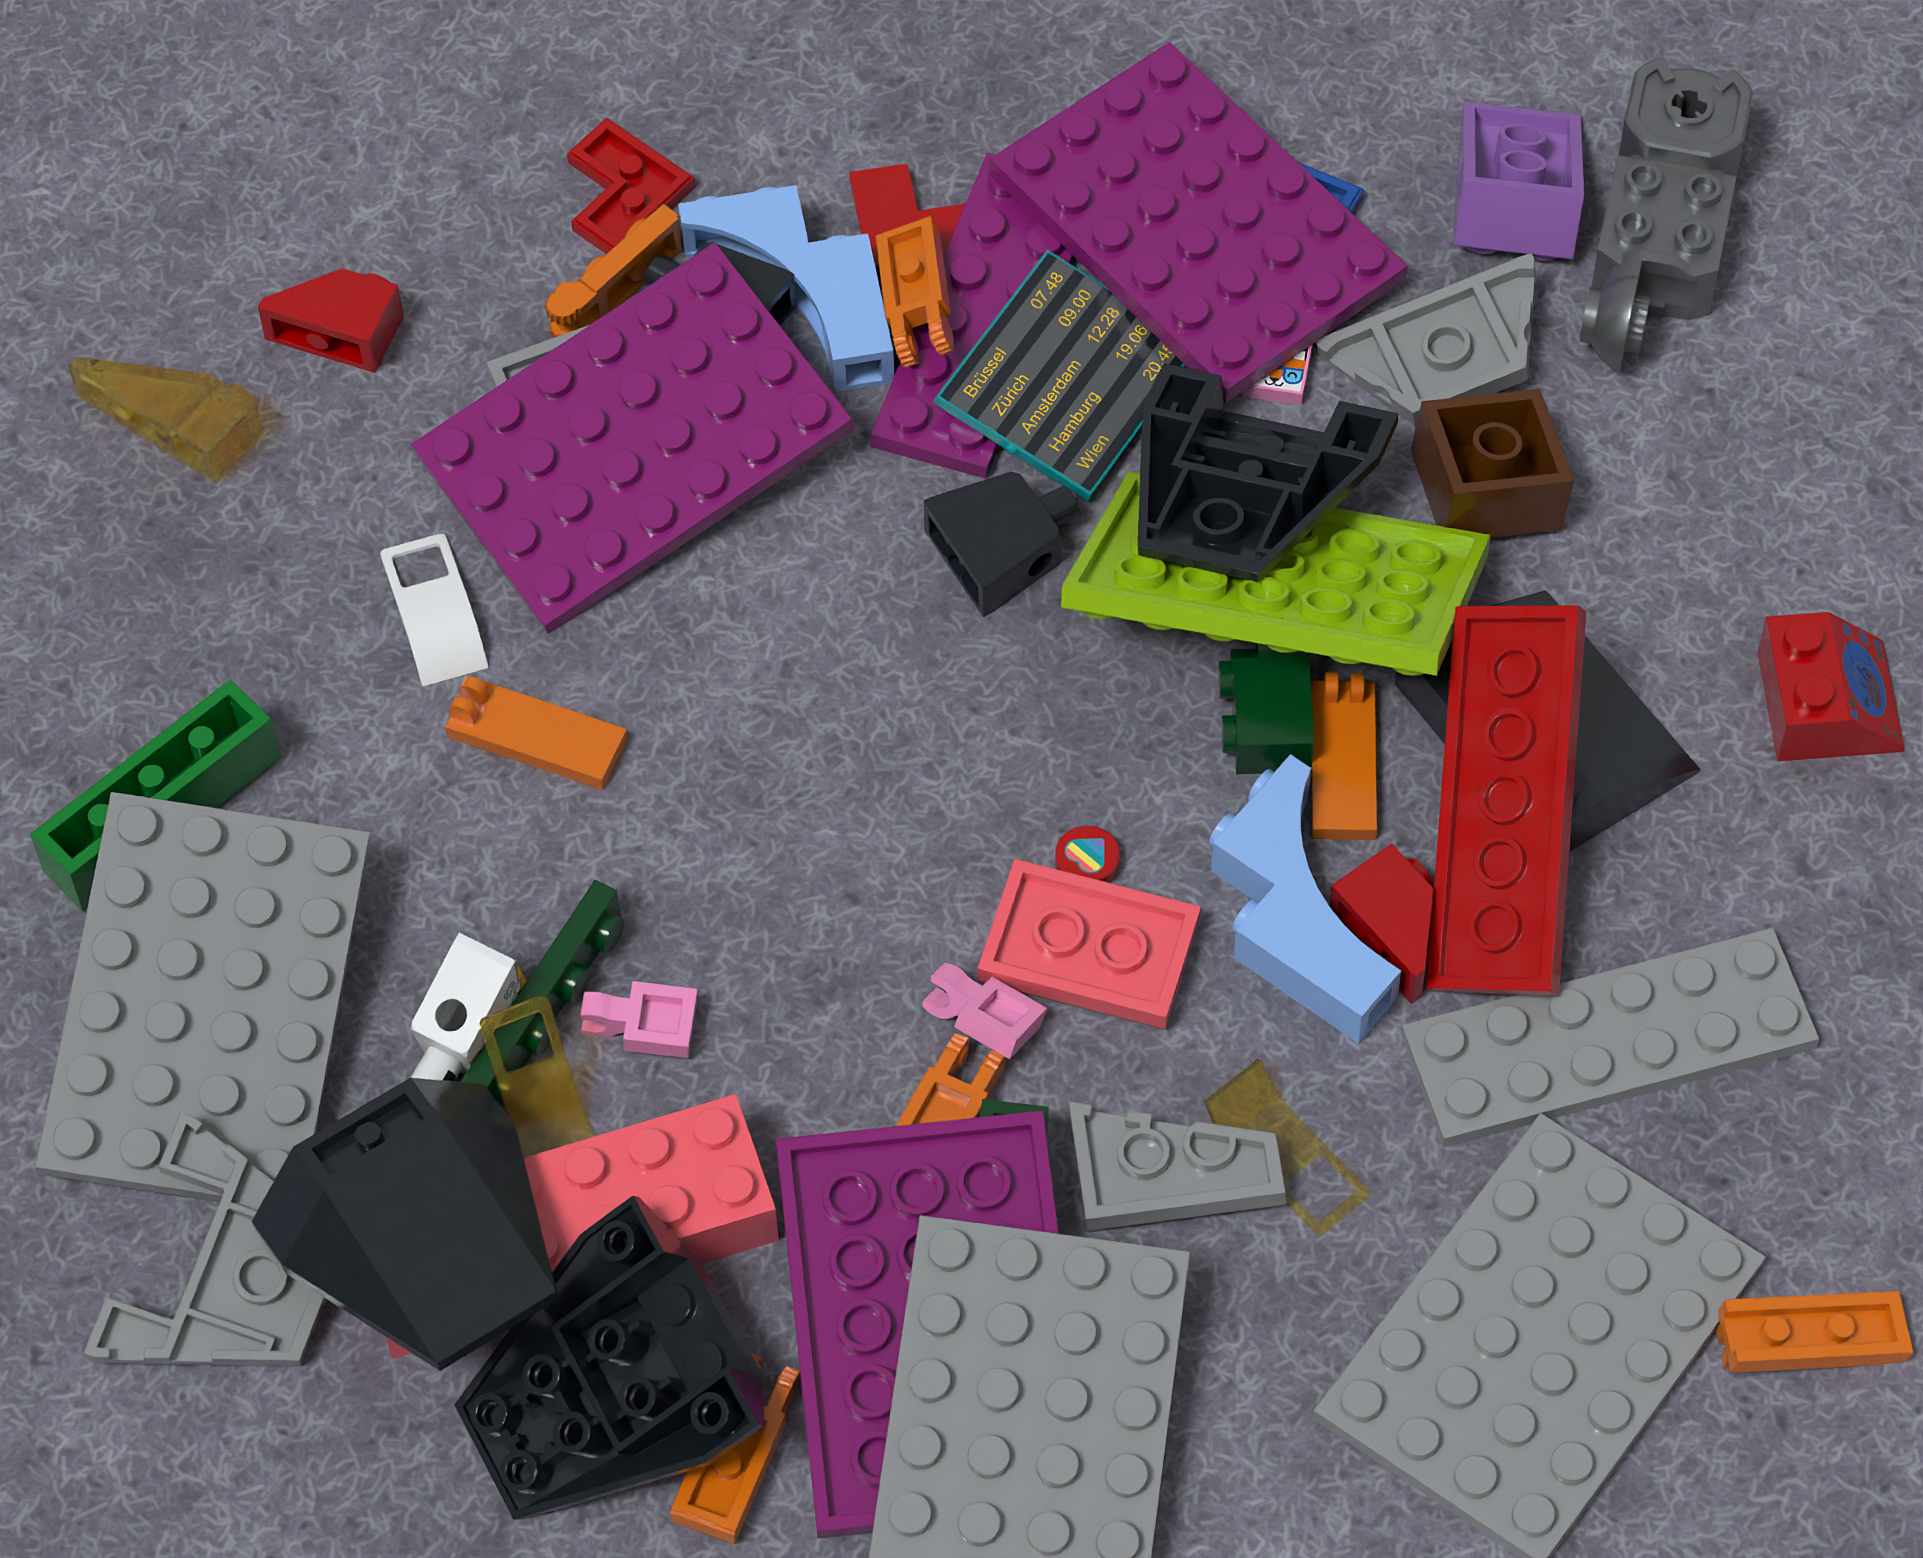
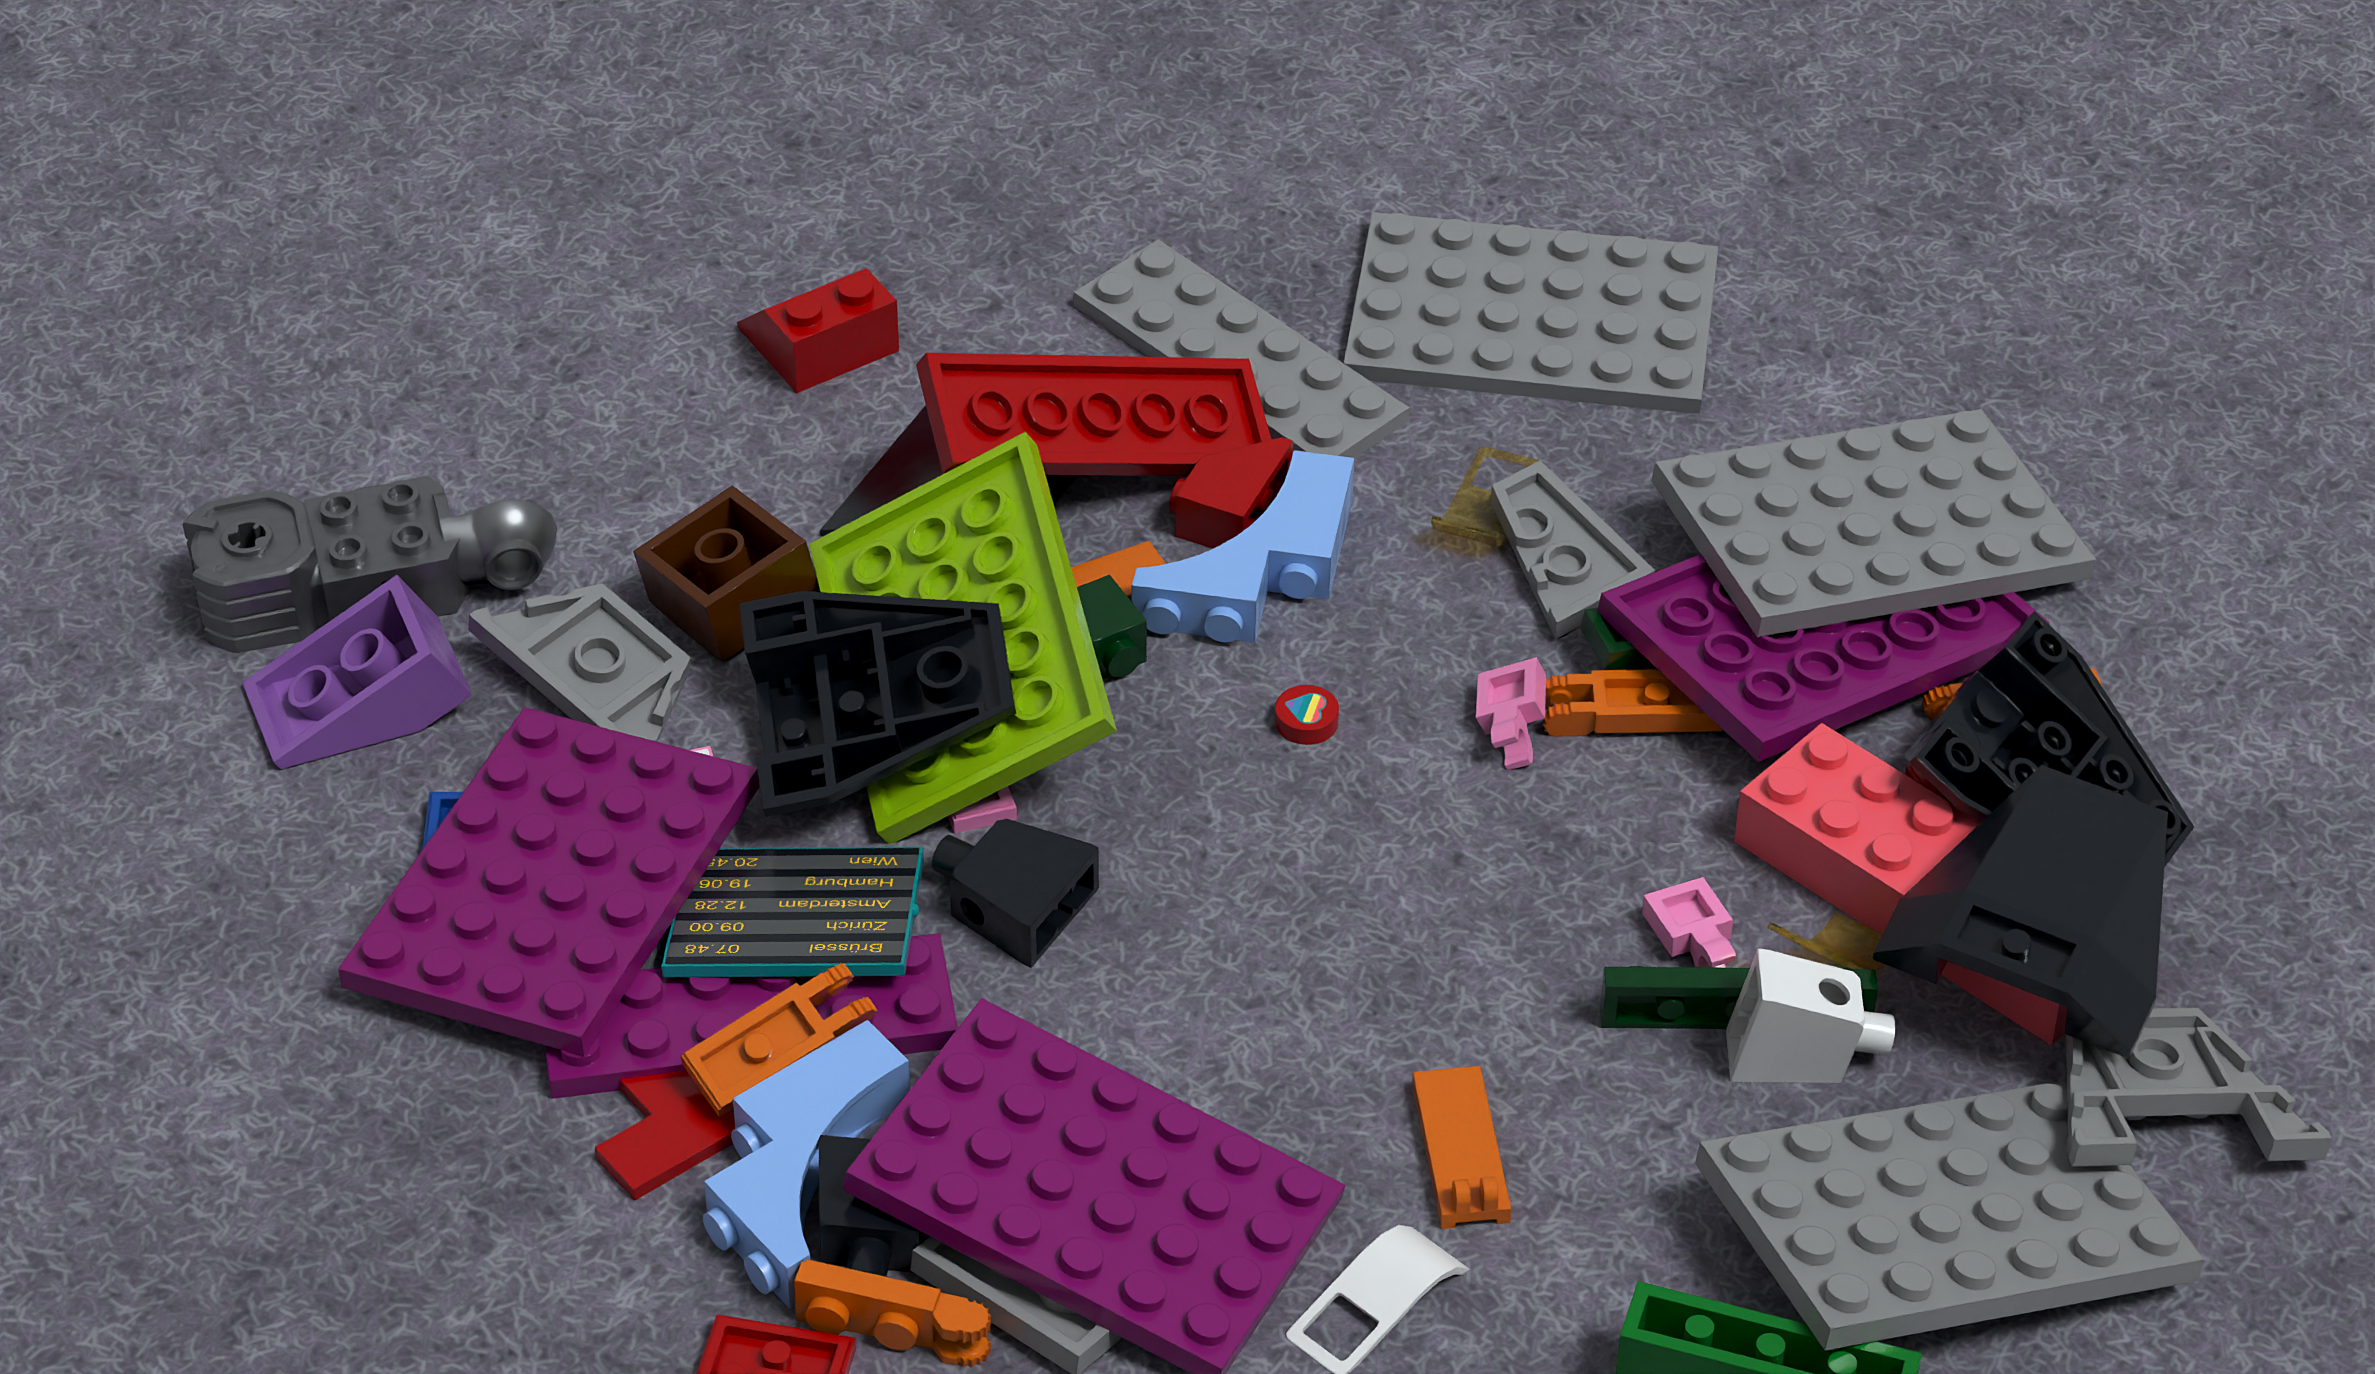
camera: 120 degrees left, 15 degrees down
(1089, 943) = (1394, 674): coral plate -> none
(1813, 1331) = (1416, 172): orange hinge -> none

